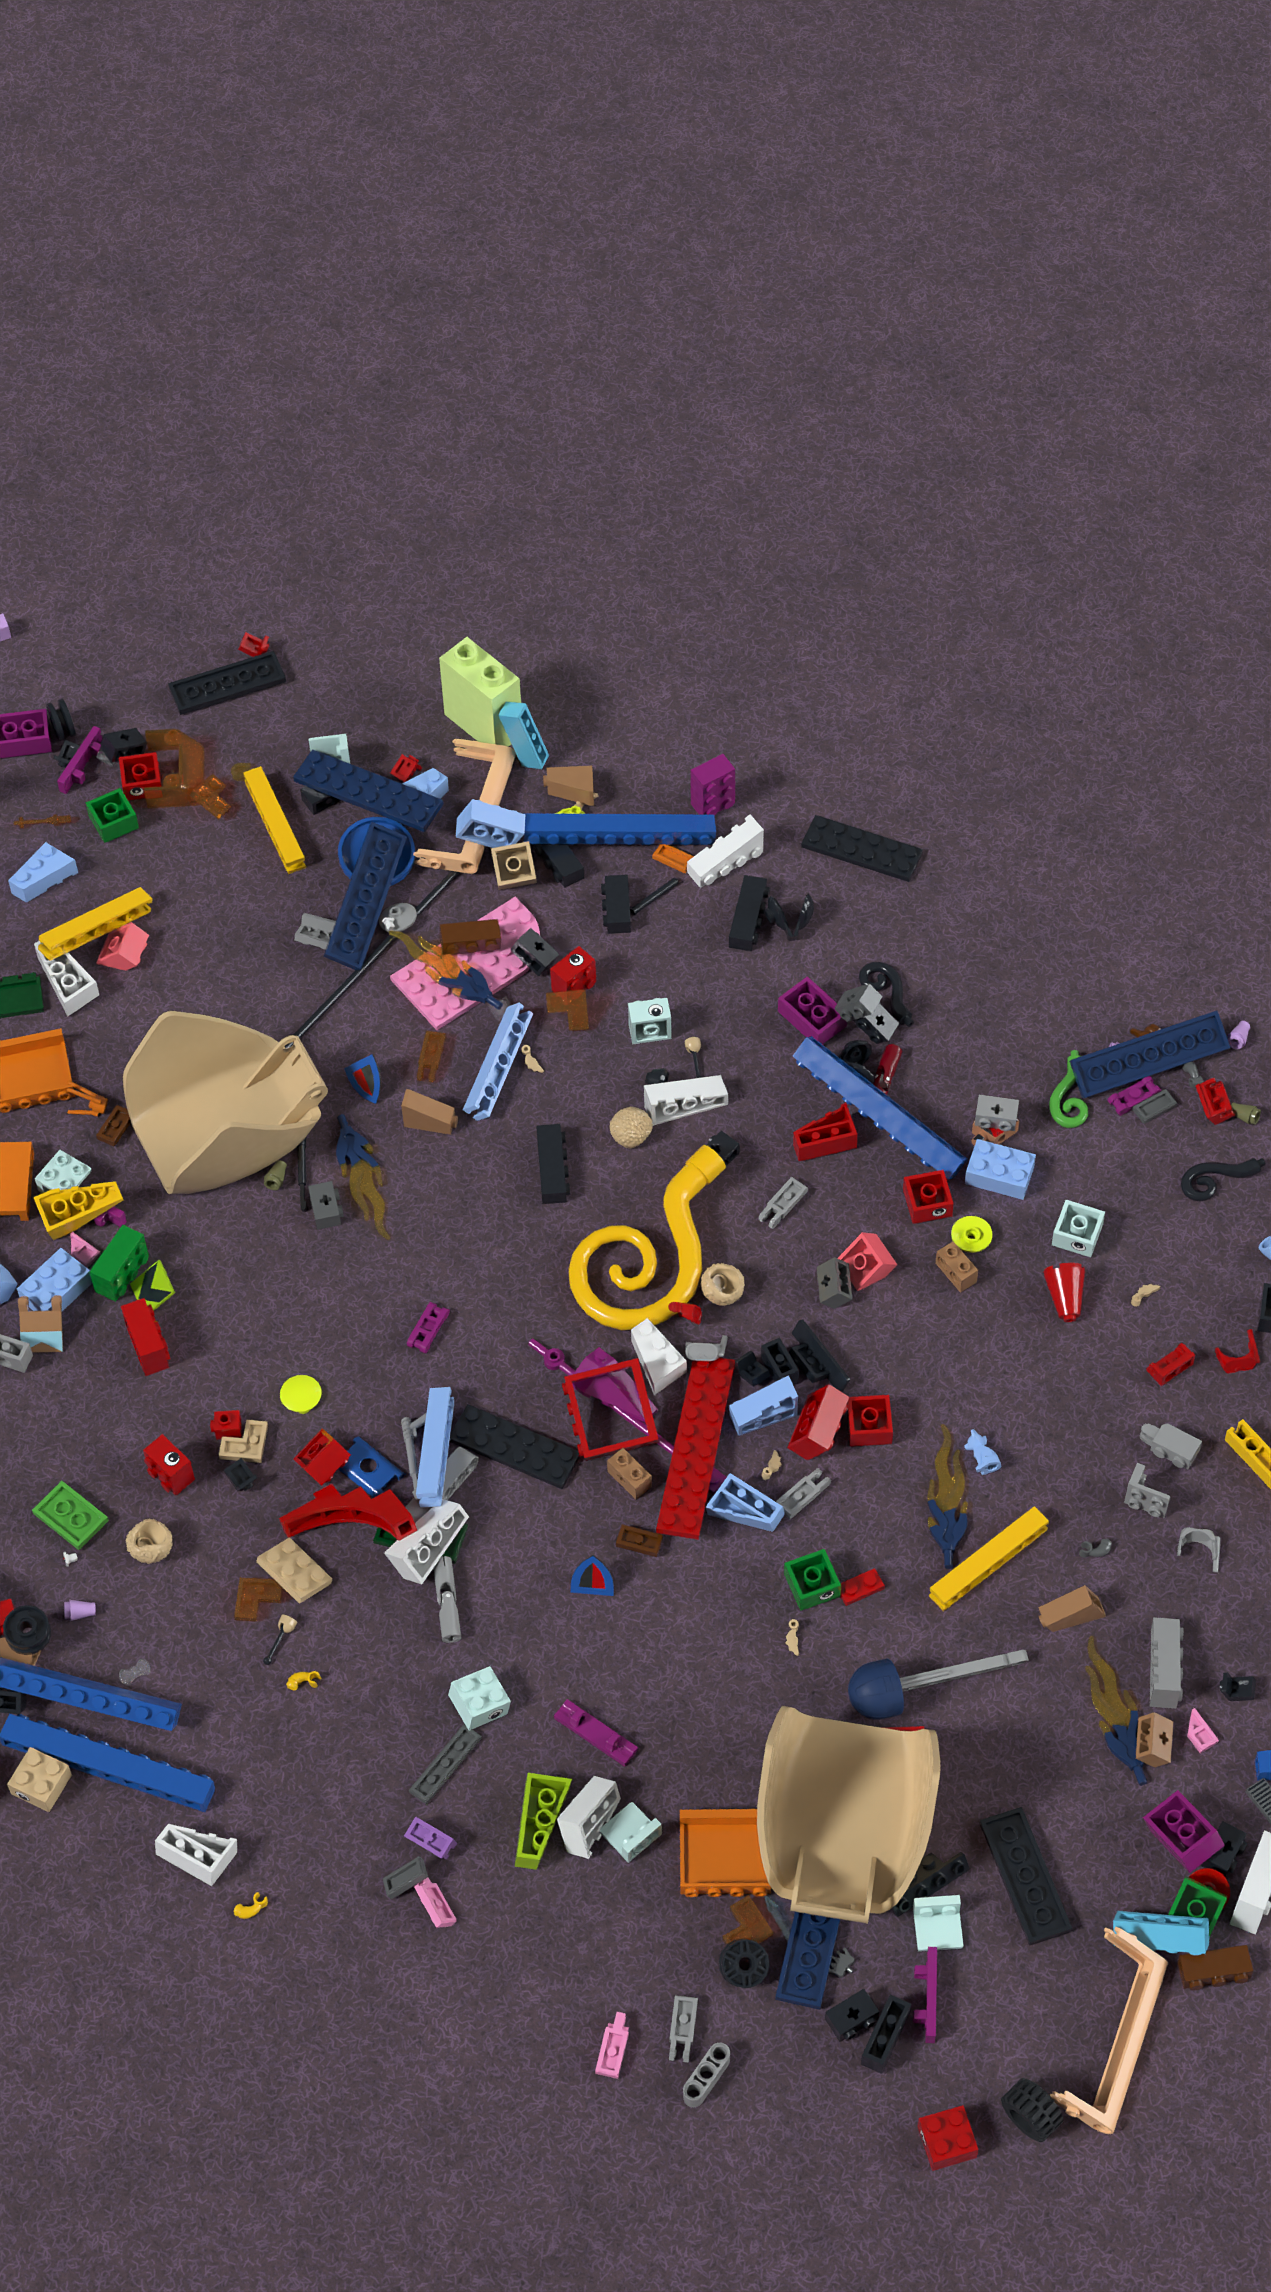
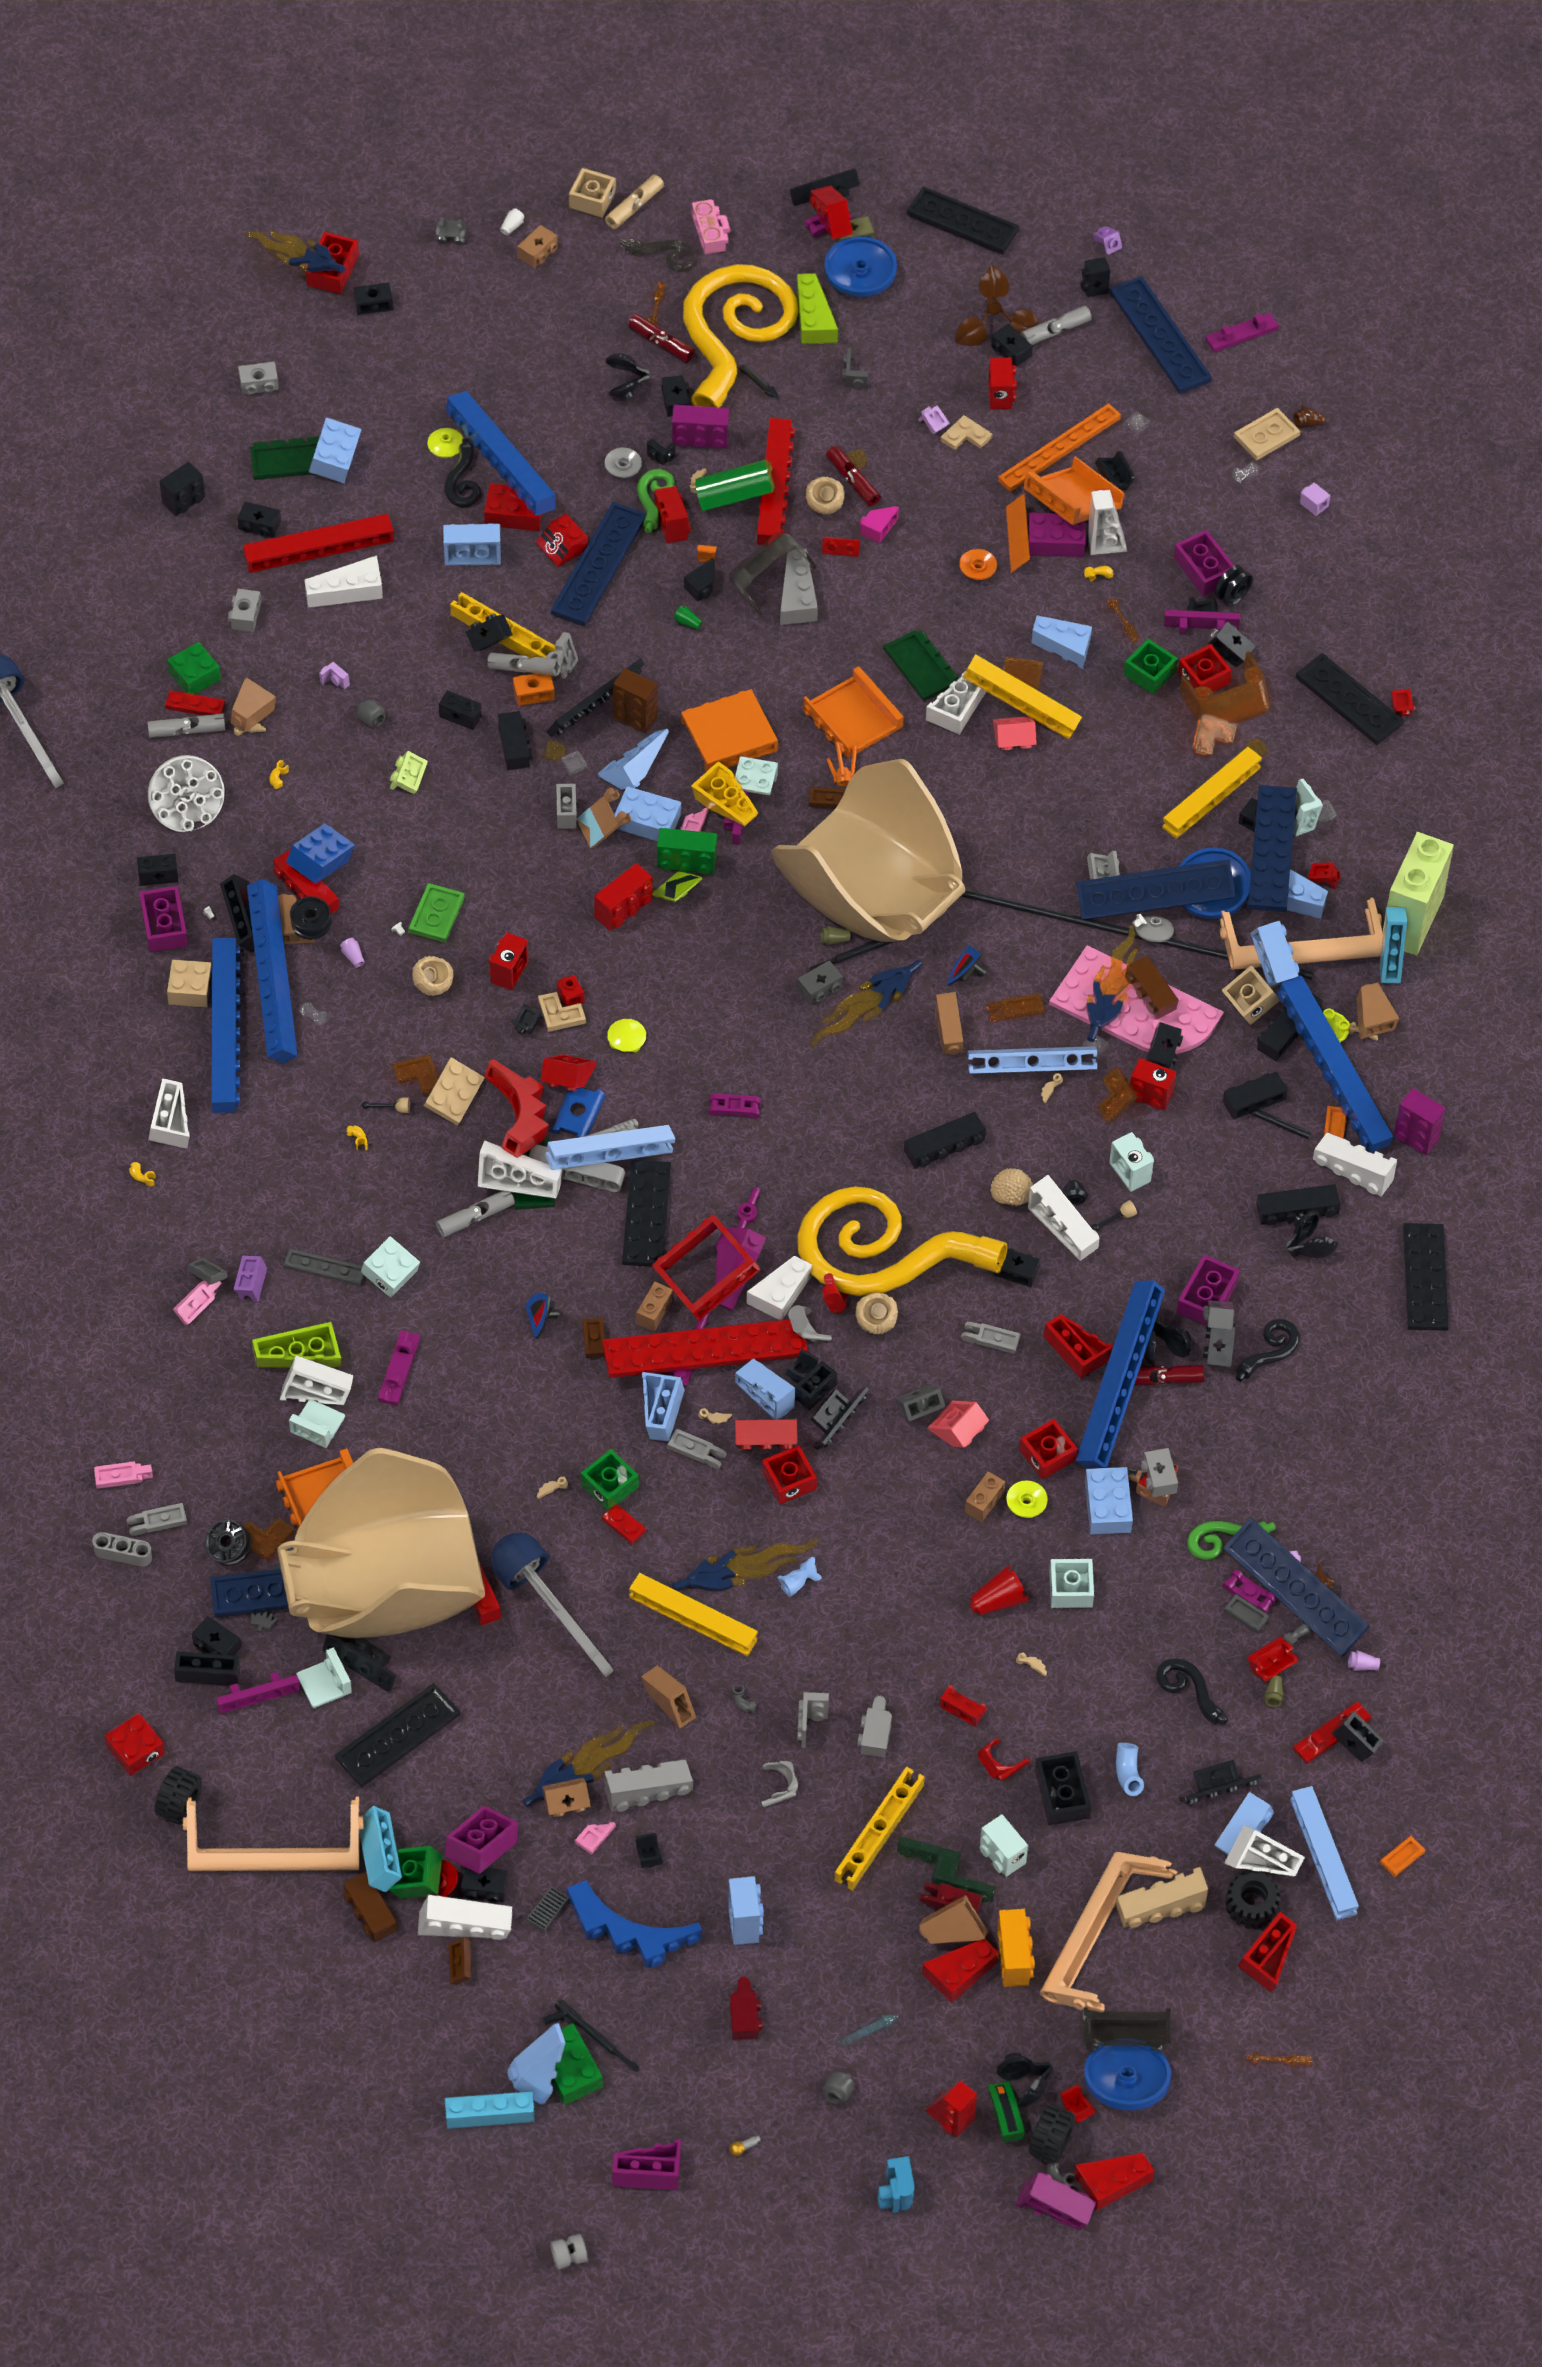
camera: 65 degrees right, 0 degrees up
(57, 915) = (1024, 670): none -> clear orange plate

